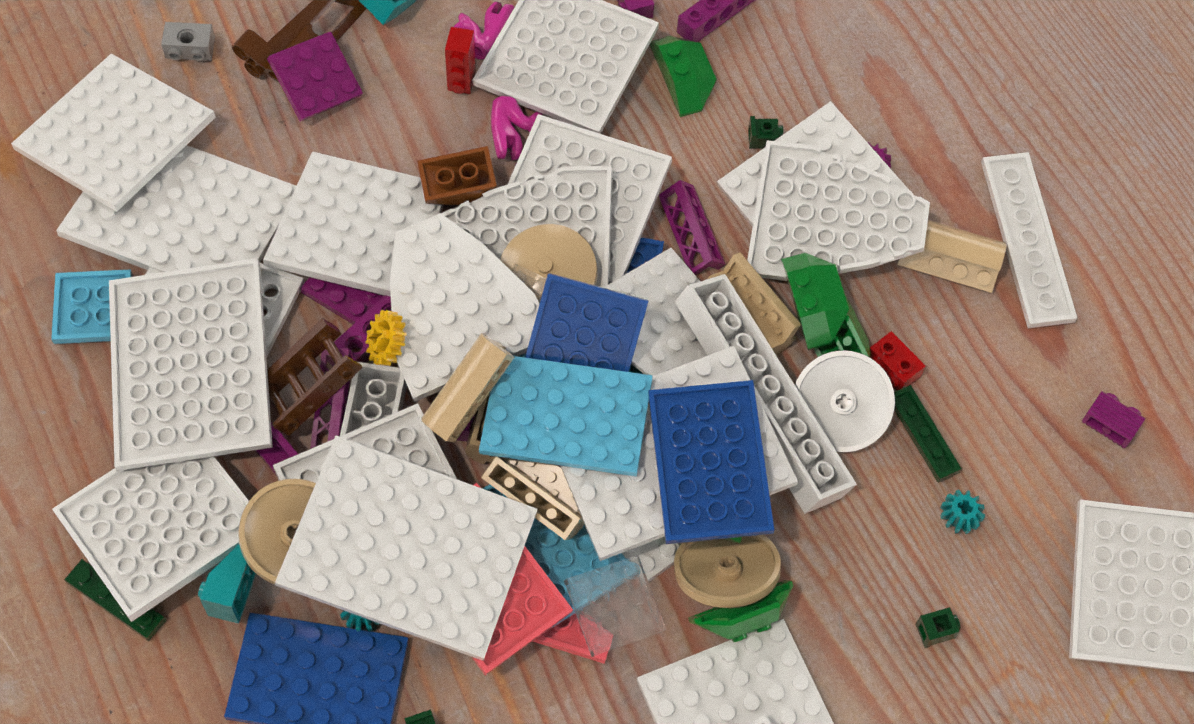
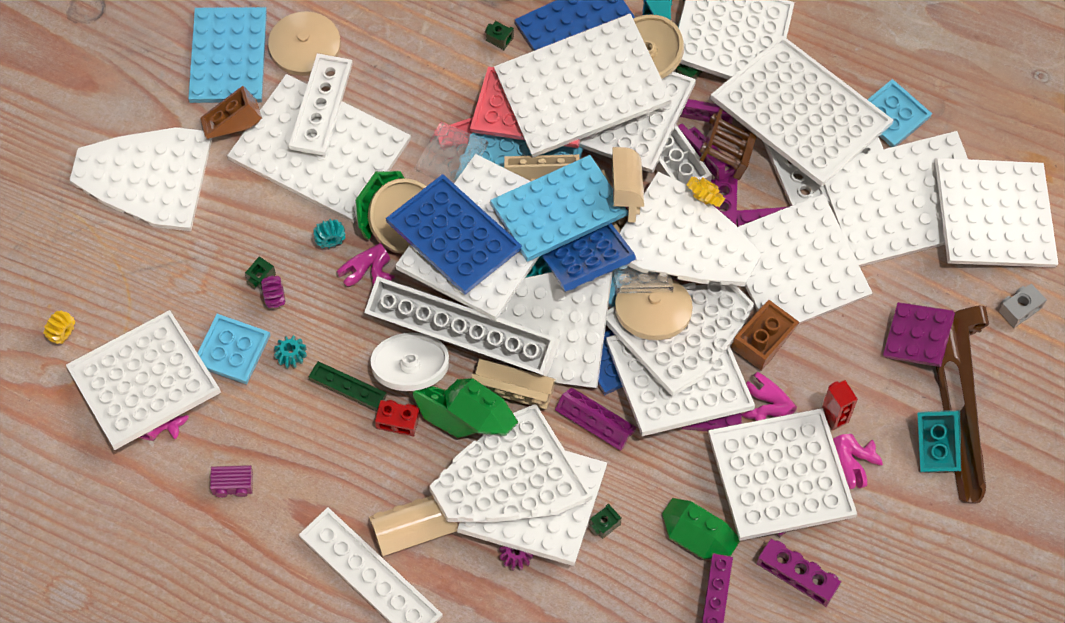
camera: 145 degrees right, 0 degrees up
(822, 556) = (359, 264): none -> dark pink piece
(827, 612) = (329, 233): none -> teal gear
(939, 588) = (273, 291): none -> magenta gear
(1025, 563) = (232, 348): none -> medium azure plate

